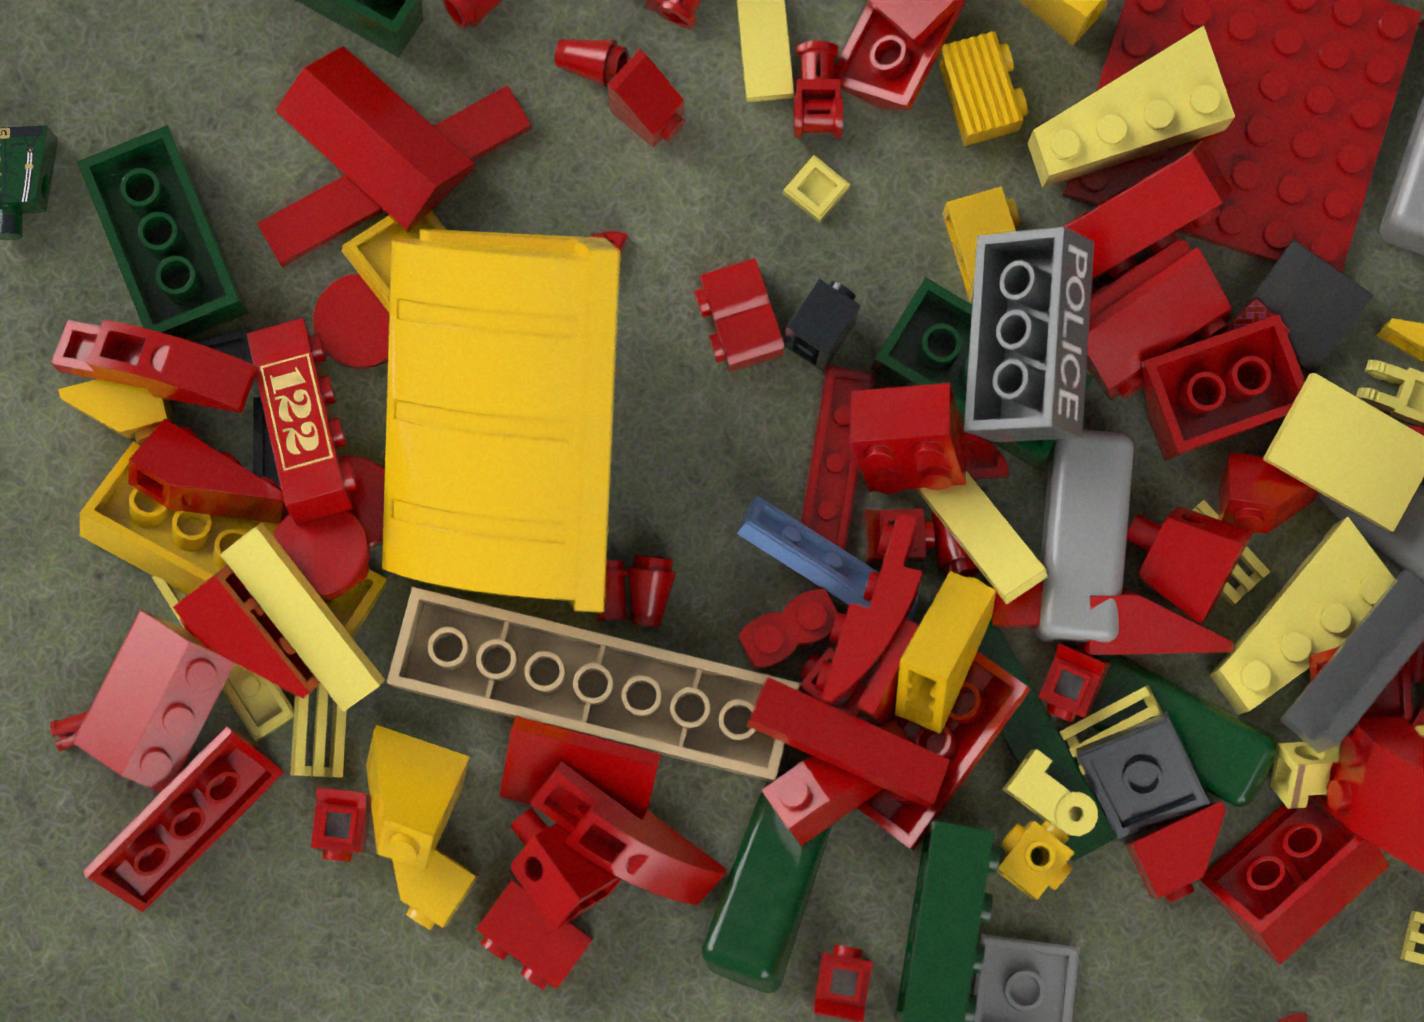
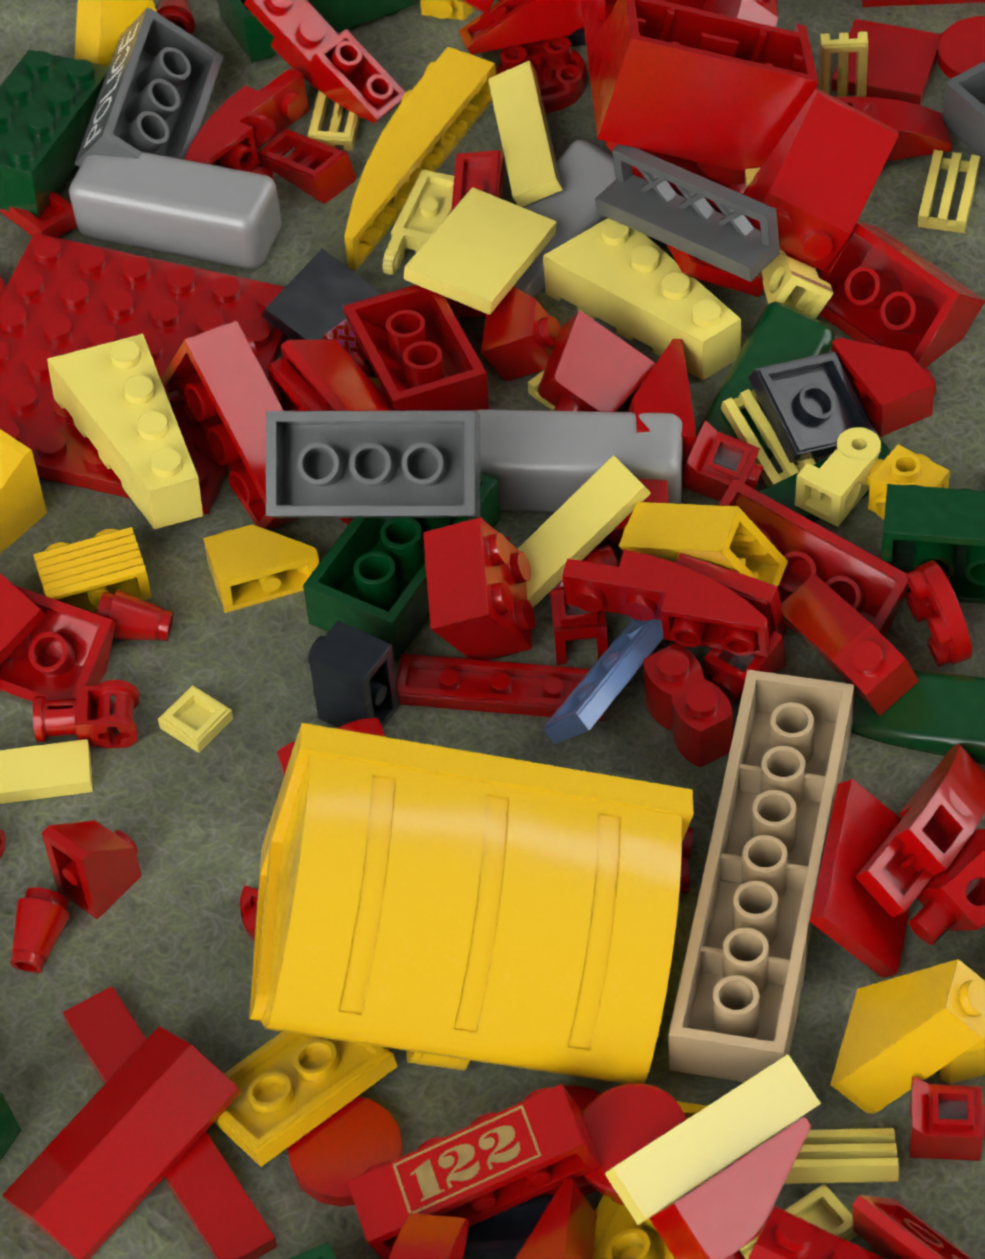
camera: 85 degrees left, 30 degrees down
(848, 742) = (807, 619): red tile -> none
(886, 866) = (937, 604): none -> red tile
(928, 127) = (135, 617): none -> red cone

